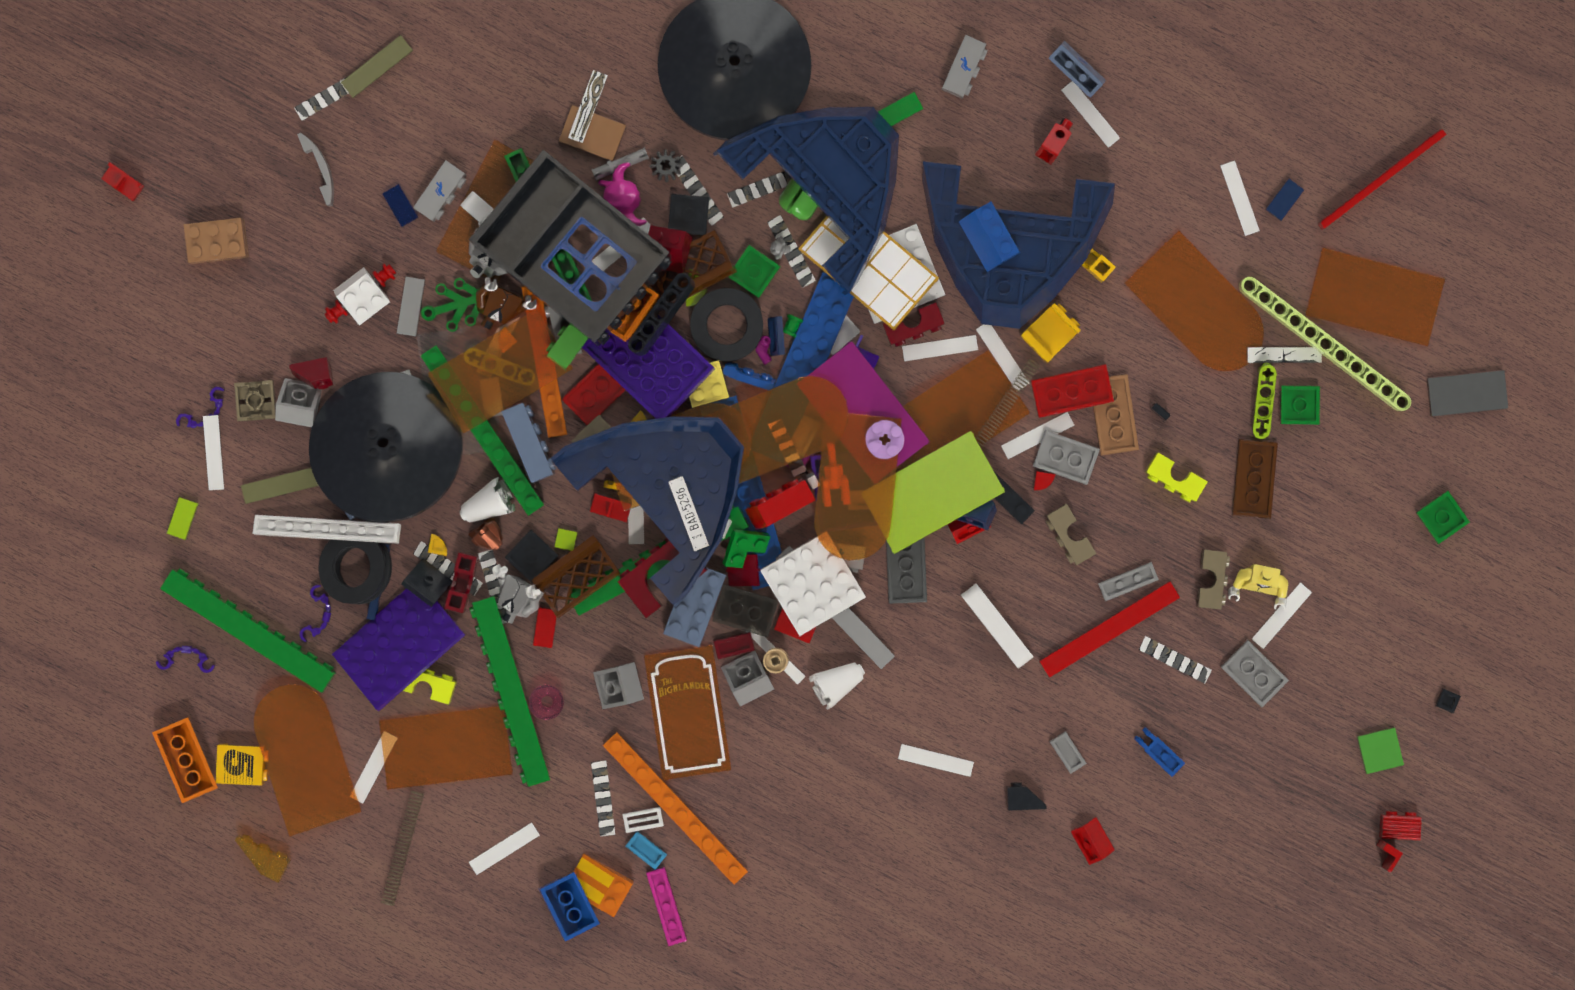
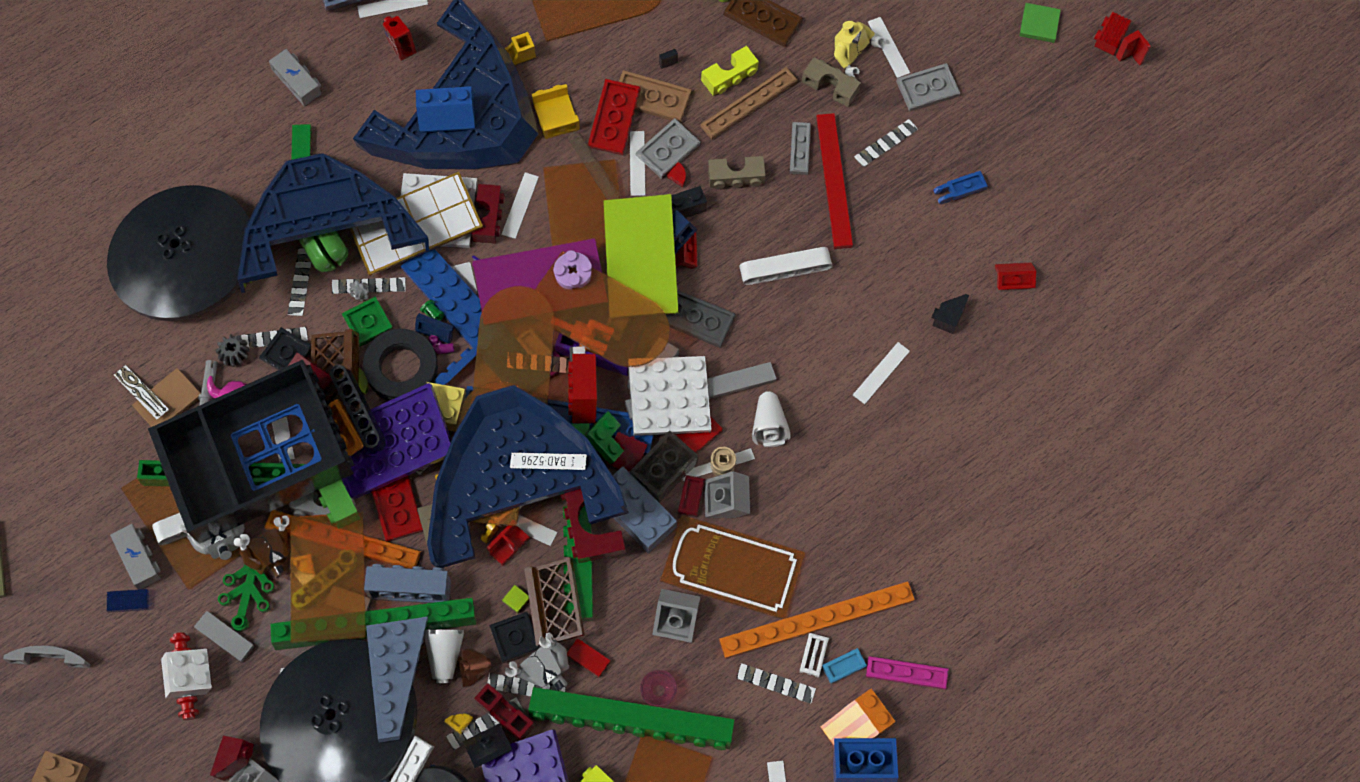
camera: 70 degrees left, 20 degrees down
(452, 471) = (393, 664): none -> sand blue wing
(1001, 354) = (554, 159): white sticker -> none
(1067, 752) = (926, 261): light grey tile -> none
(1152, 510) = (748, 103): none -> medium nougat tile

